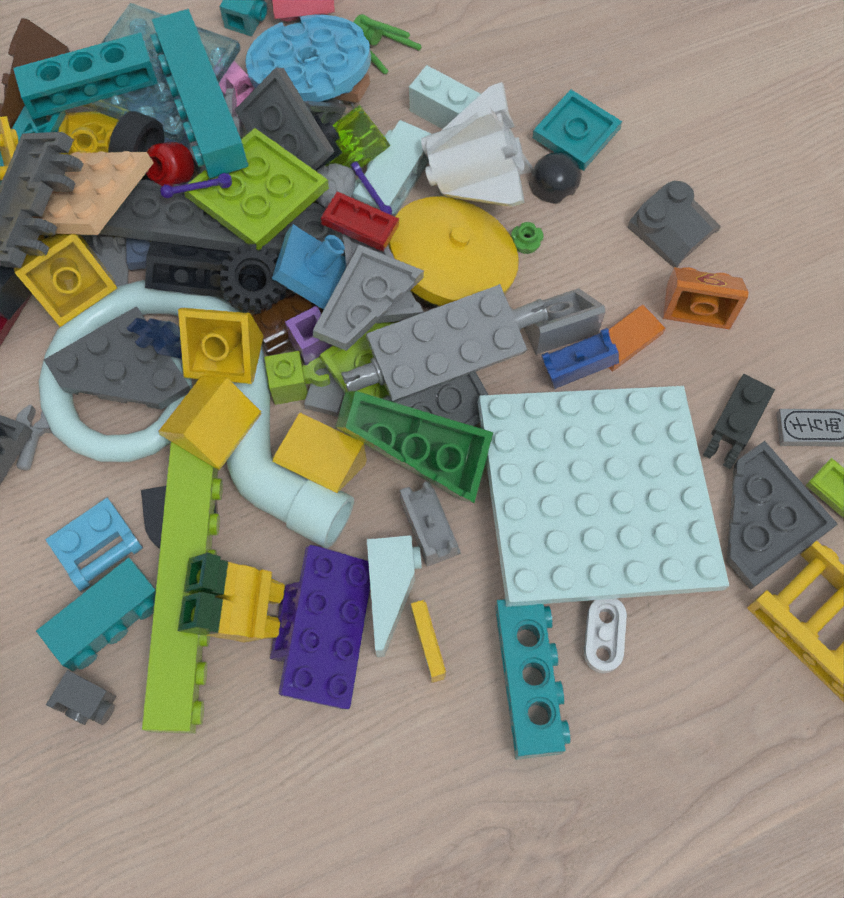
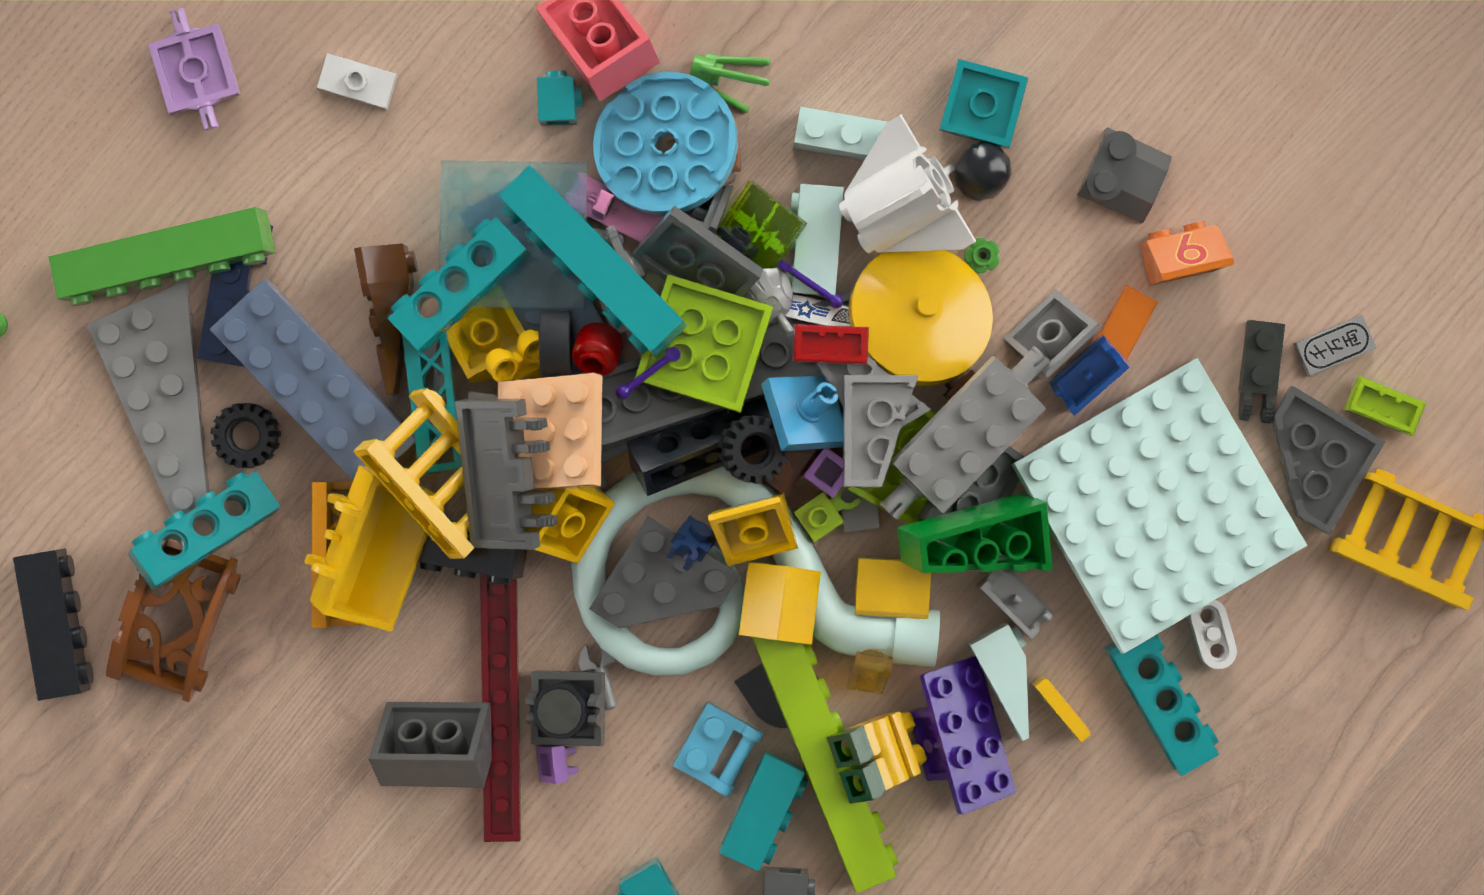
camera: 25 degrees left, 20 degrees up
(262, 523) = (870, 671): none -> clear yellow plate

